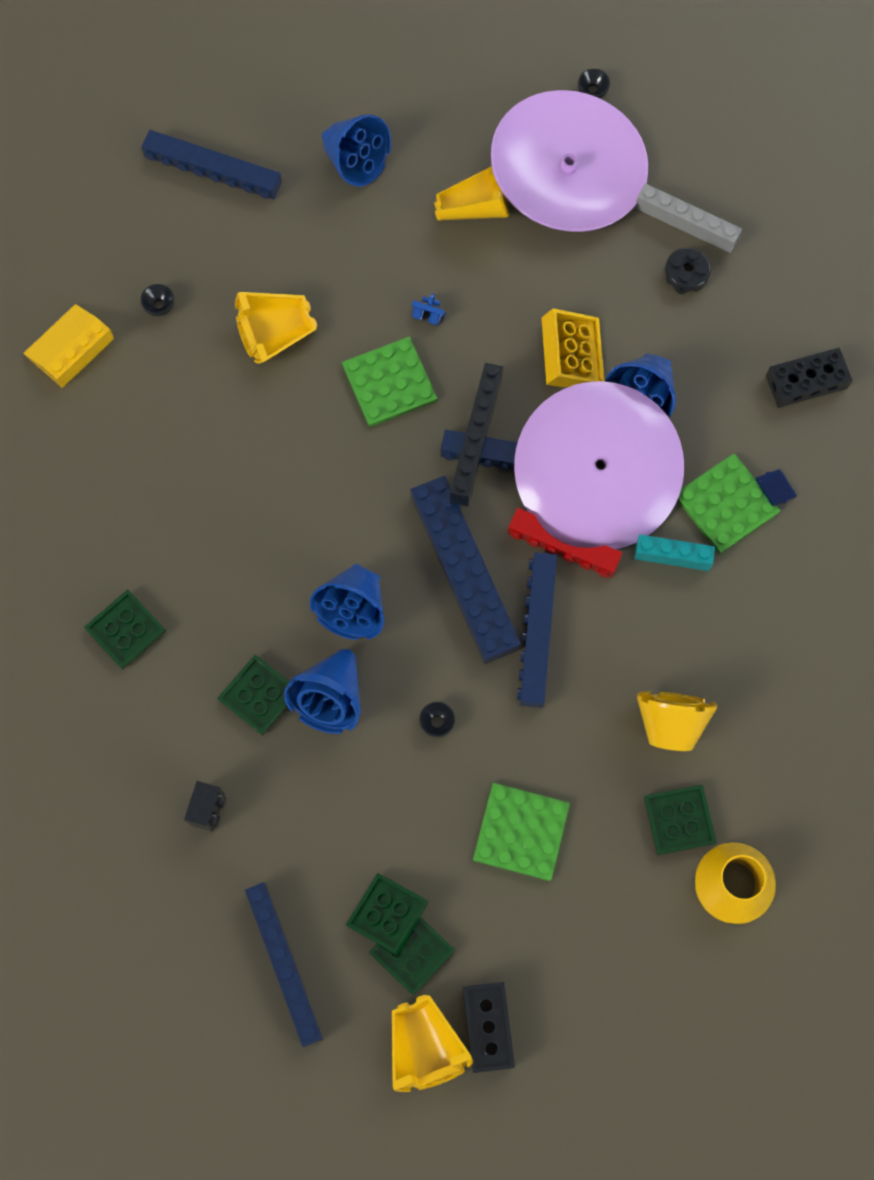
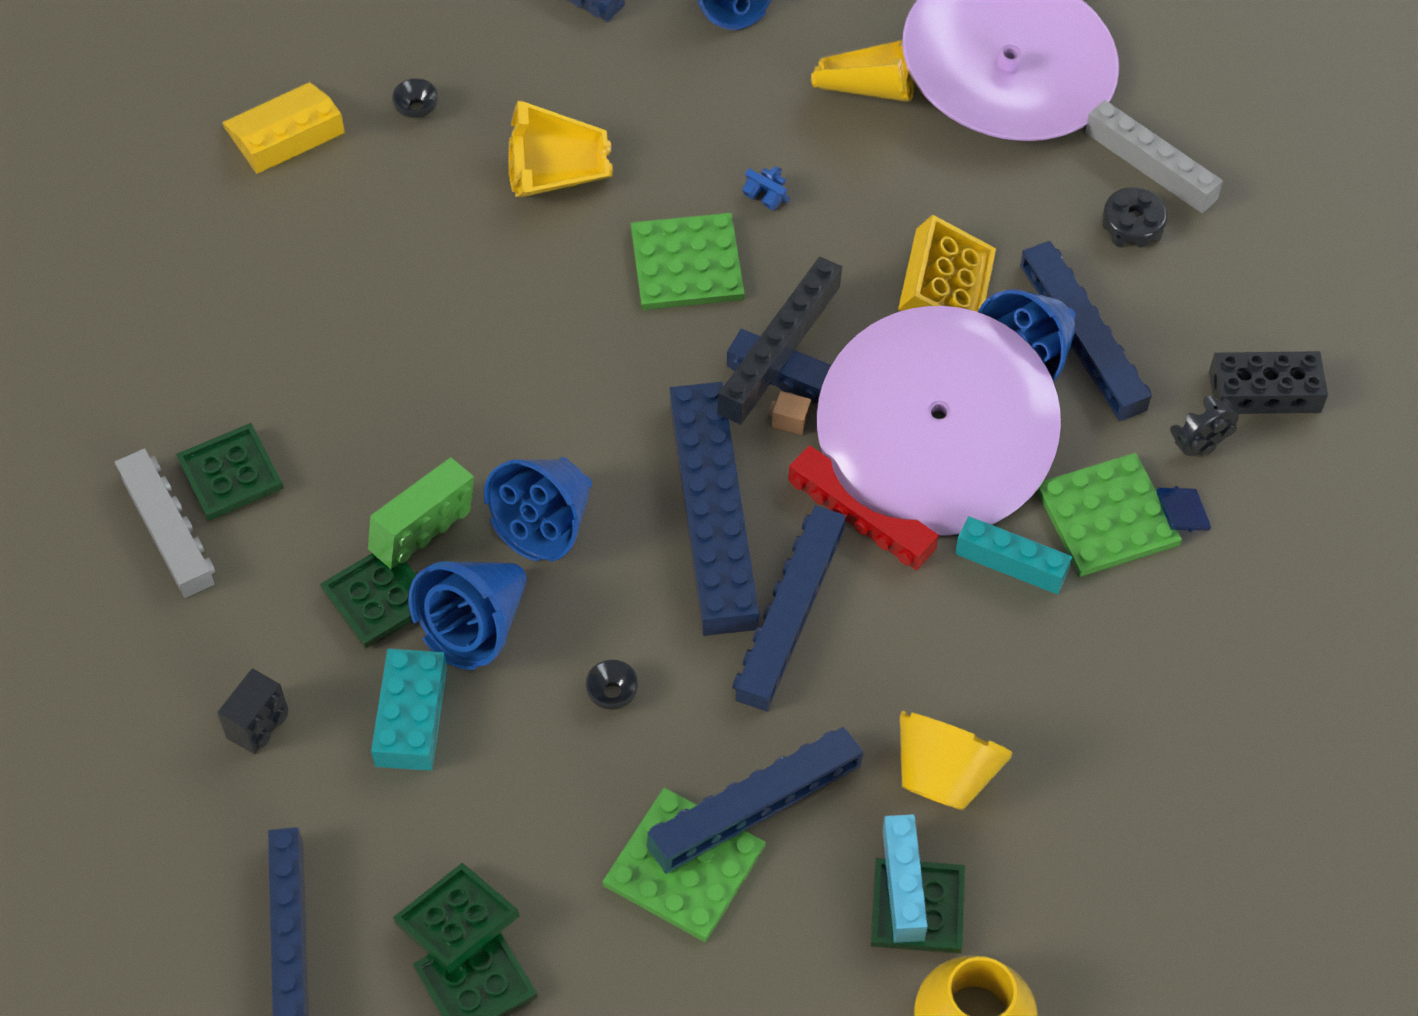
camera: 15 degrees right, 15 degrees down
(93, 680) = (165, 523): none -> light grey brick
(271, 631) = (420, 513): none -> bright green brick
(308, 774) = (409, 709): none -> teal brick
(496, 483) = (790, 413): none -> medium nougat brick
(555, 778) = (753, 799): none -> dark blue brick
(669, 808) = (904, 878): none -> medium azure brick
(686, 377) = (1092, 338): none -> dark blue brick
(775, 432) = (1206, 430): none -> black plate

